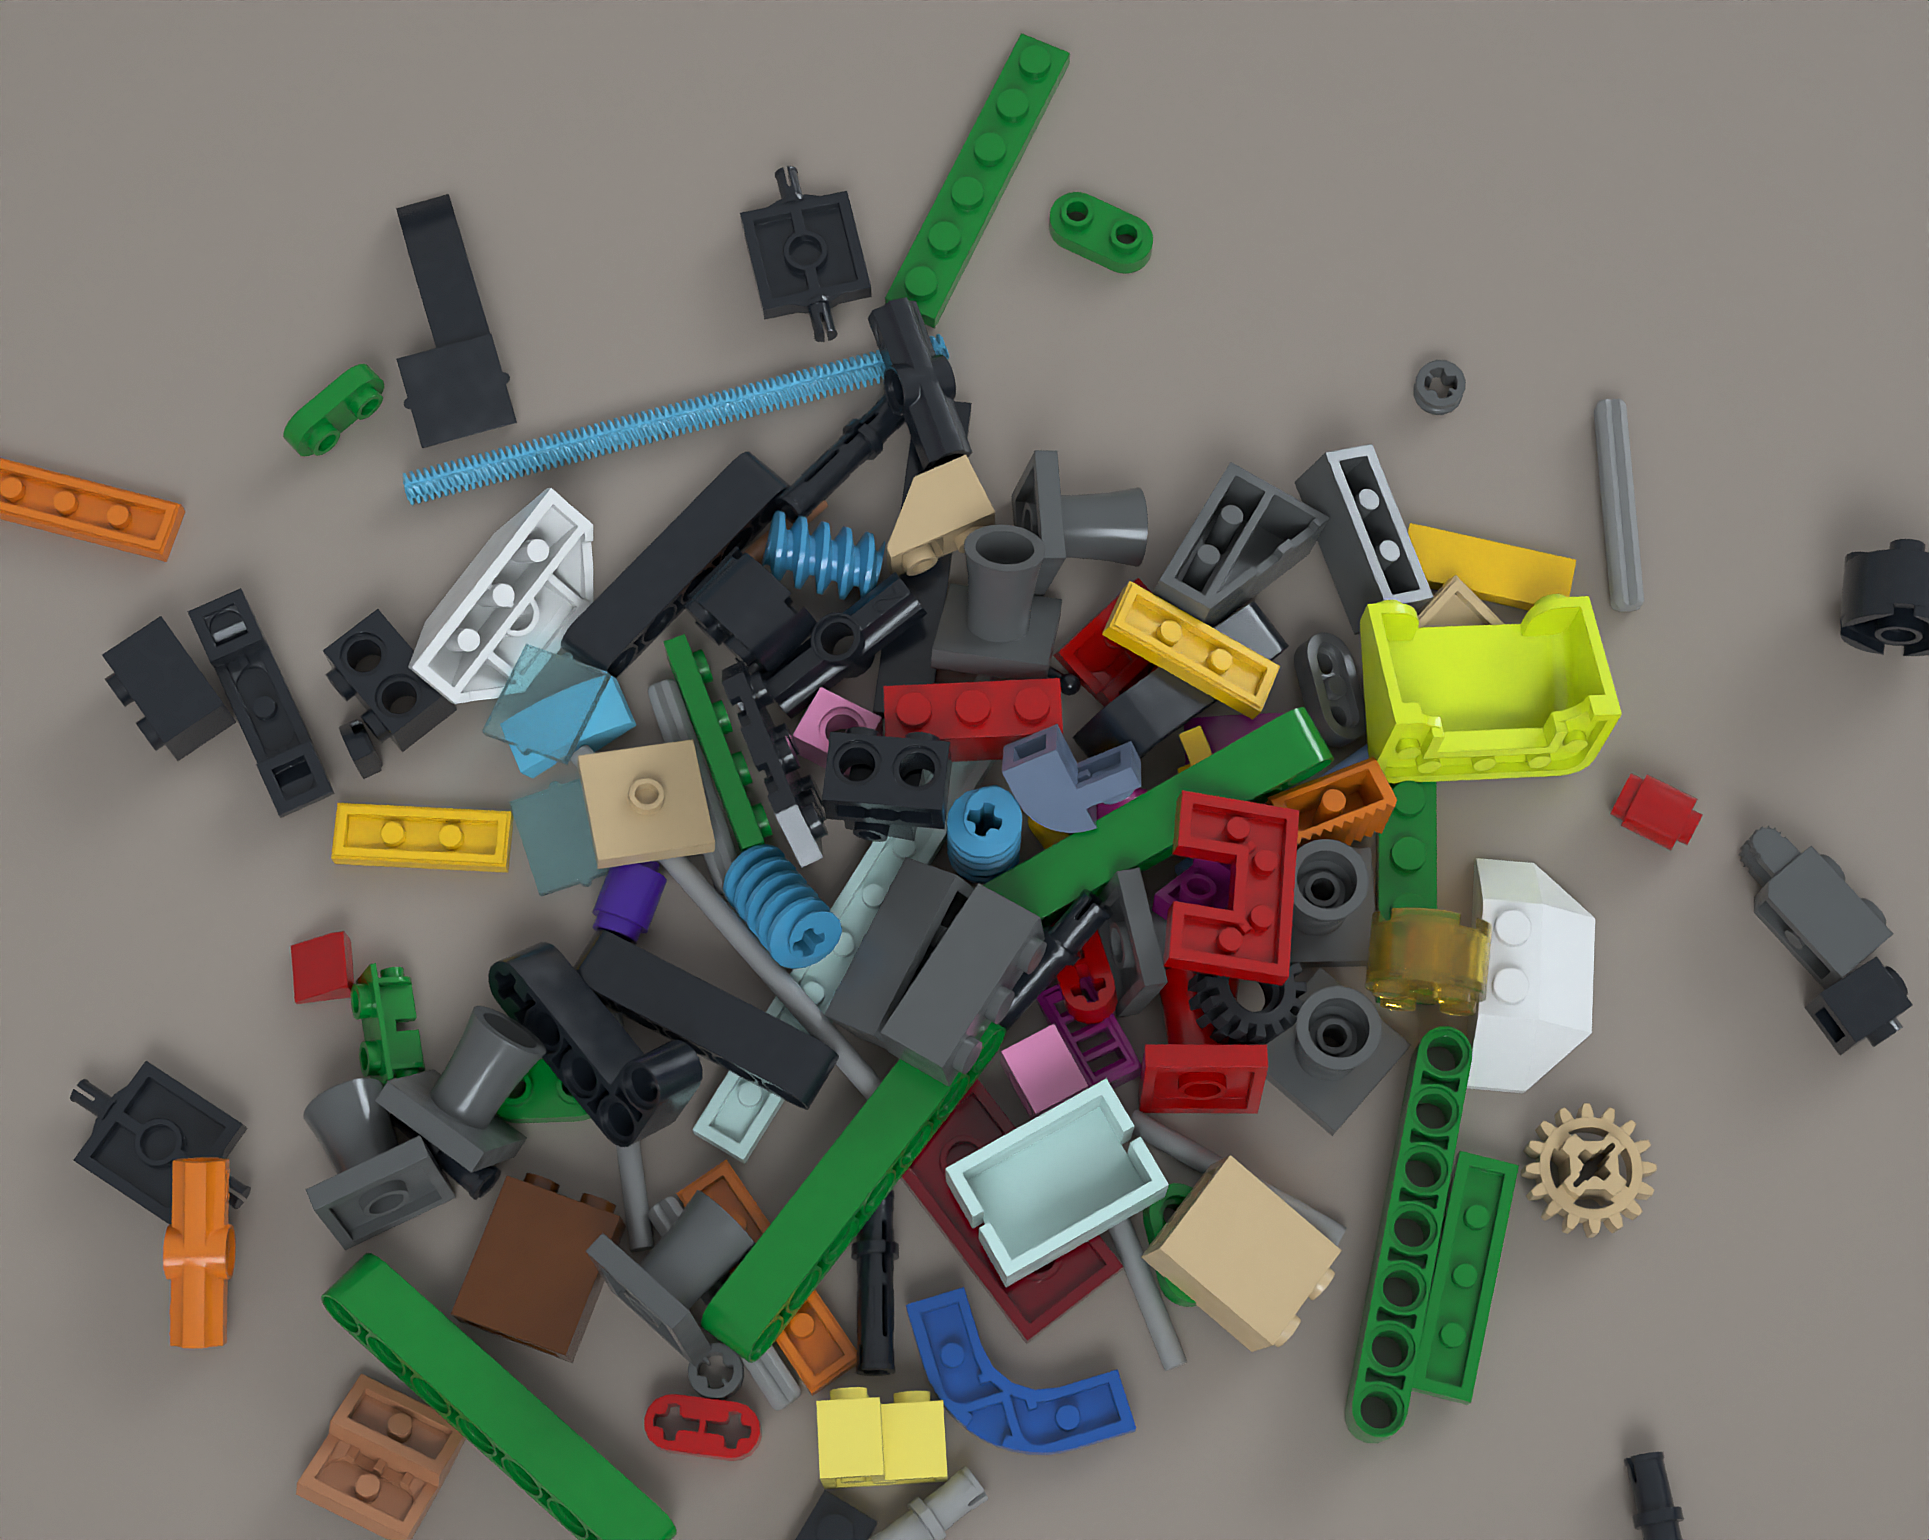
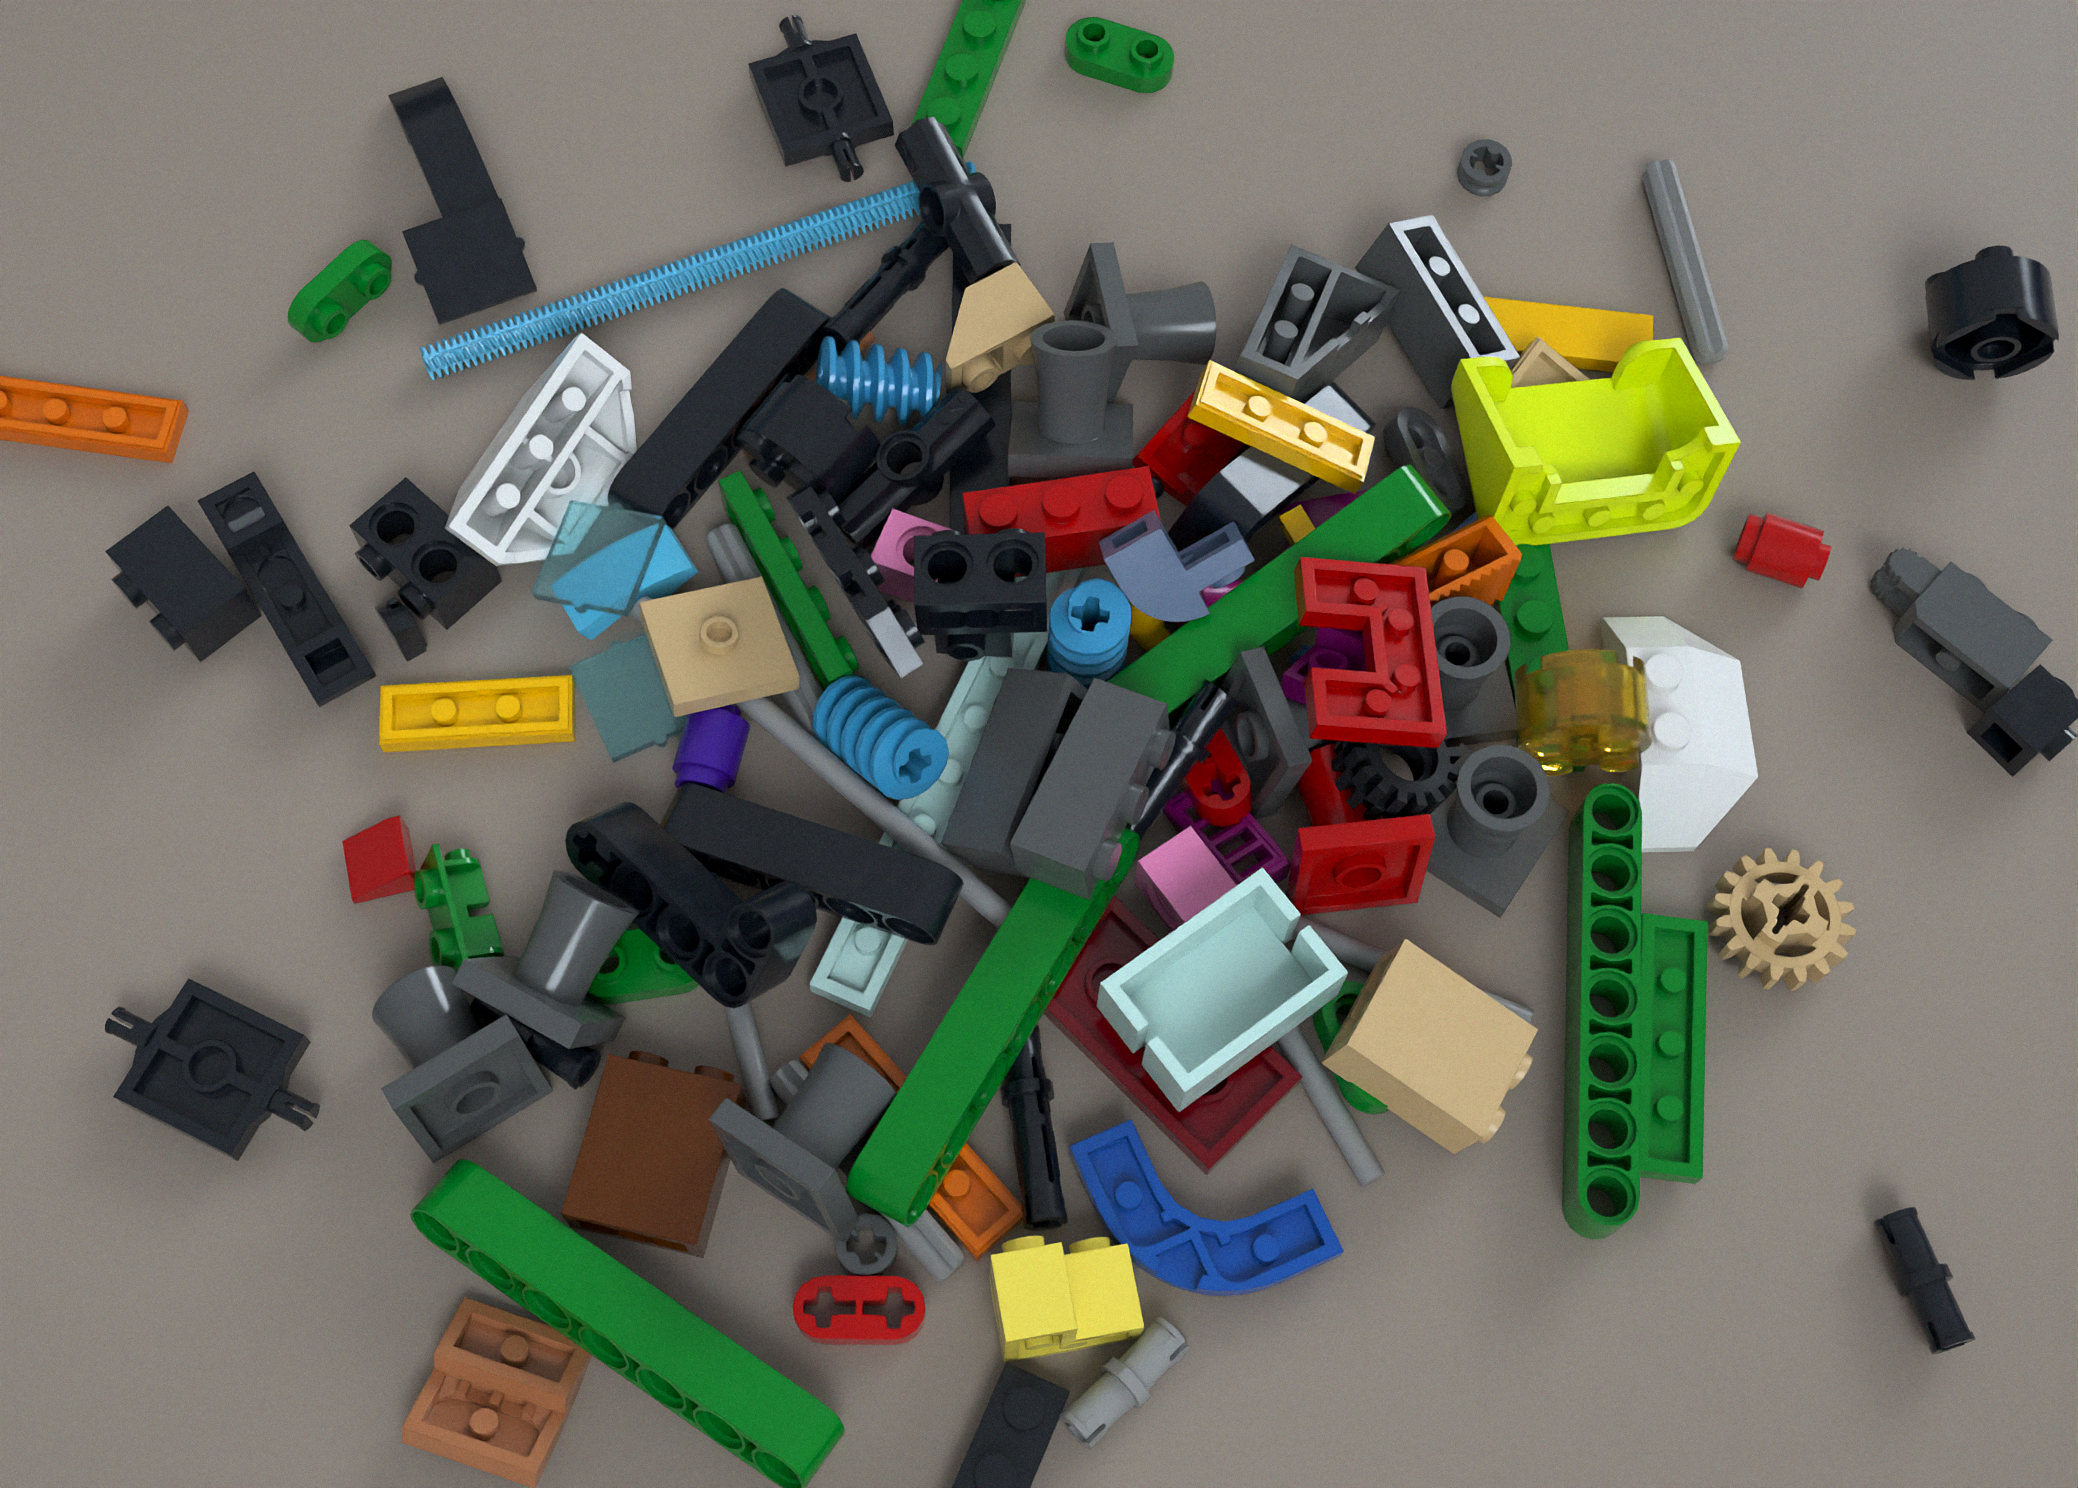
camera: 10 degrees left, 5 degrees down
(199, 1252) = (266, 1181): orange piece -> none

